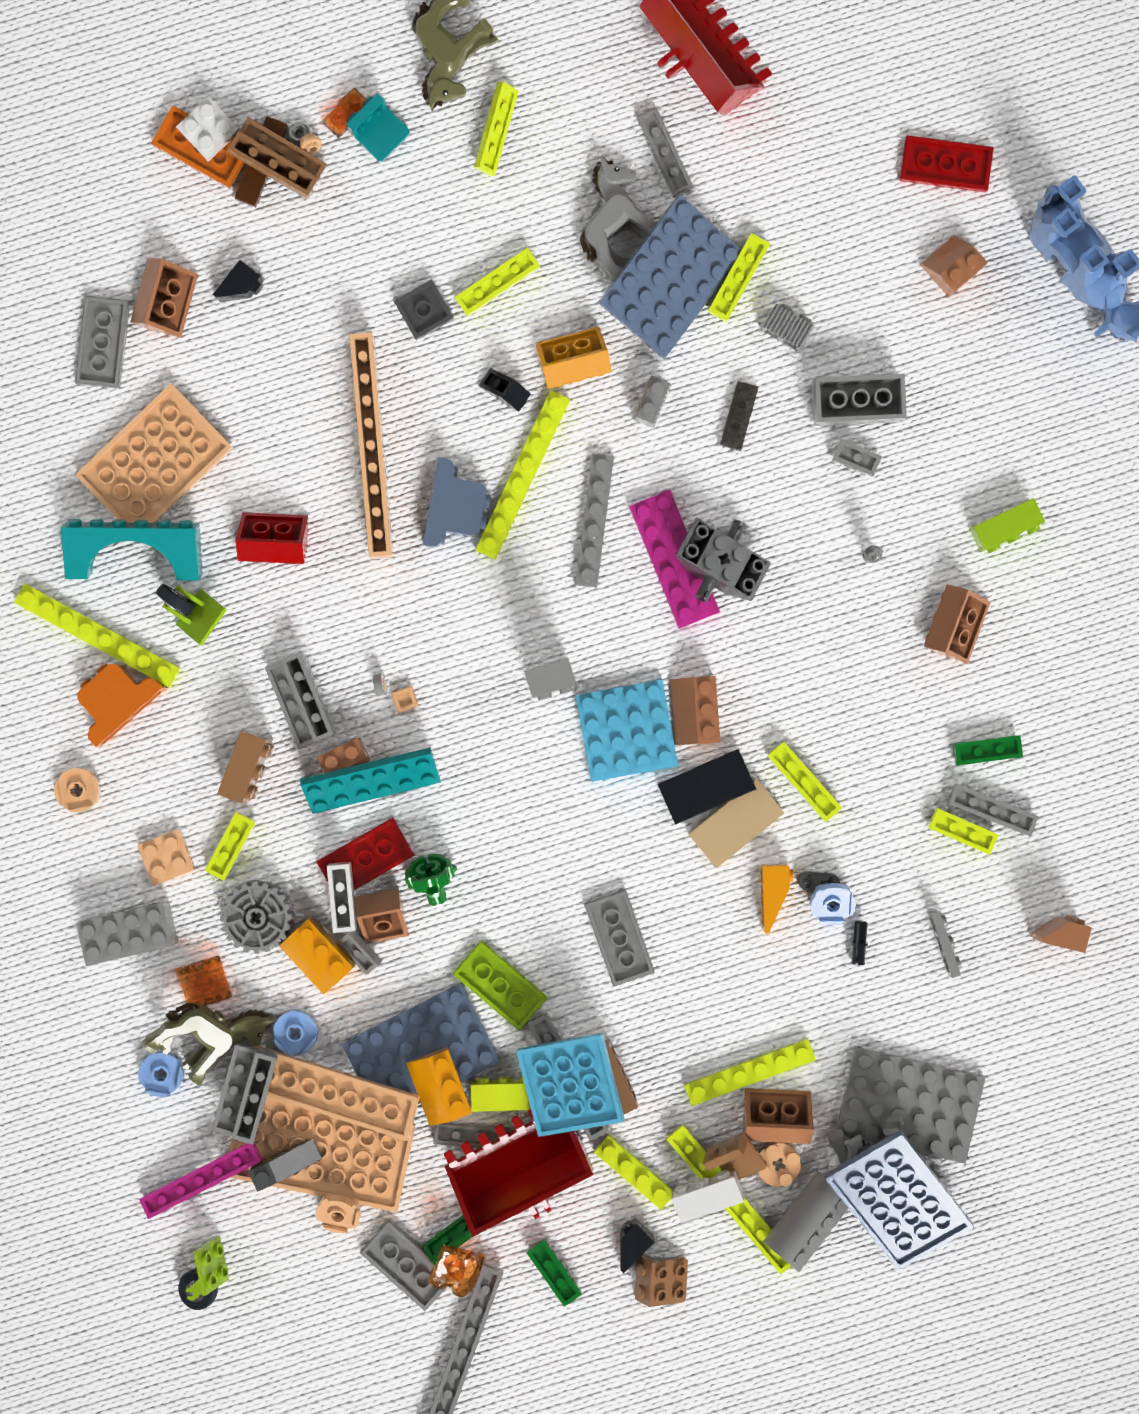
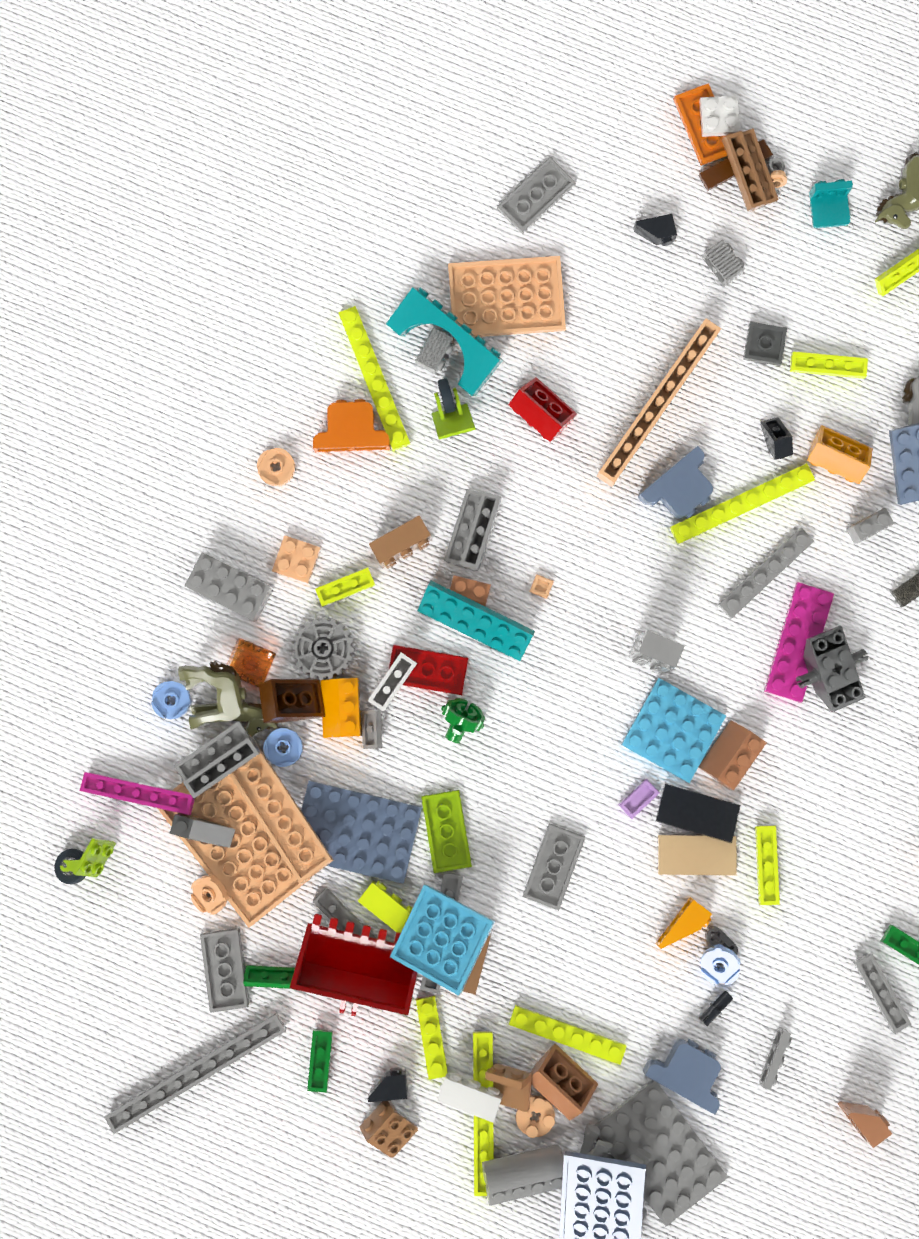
camera: 40 degrees right, 5 degrees down
(131, 566) = (434, 351): none -> light grey brick
(164, 297) = (601, 198): nougat slope -> none
(266, 986) = (291, 700): none -> reddish brown slope
(325, 265) = (723, 262): none -> light grey brick
(338, 118) = (808, 178): clear orange slope -> none
(380, 684) = (533, 562): light grey tile -> none
(381, 915) = (406, 717): nougat slope -> none
(439, 1087) = (351, 865): light orange slope -> none
(456, 1270) = (256, 1002): clear orange slope -> none
(645, 816) = (639, 798): none -> lavender tile
(880, 1019) = (688, 1073): none -> sand blue brick
(963, 831) = (849, 990): neon yellow plate -> none

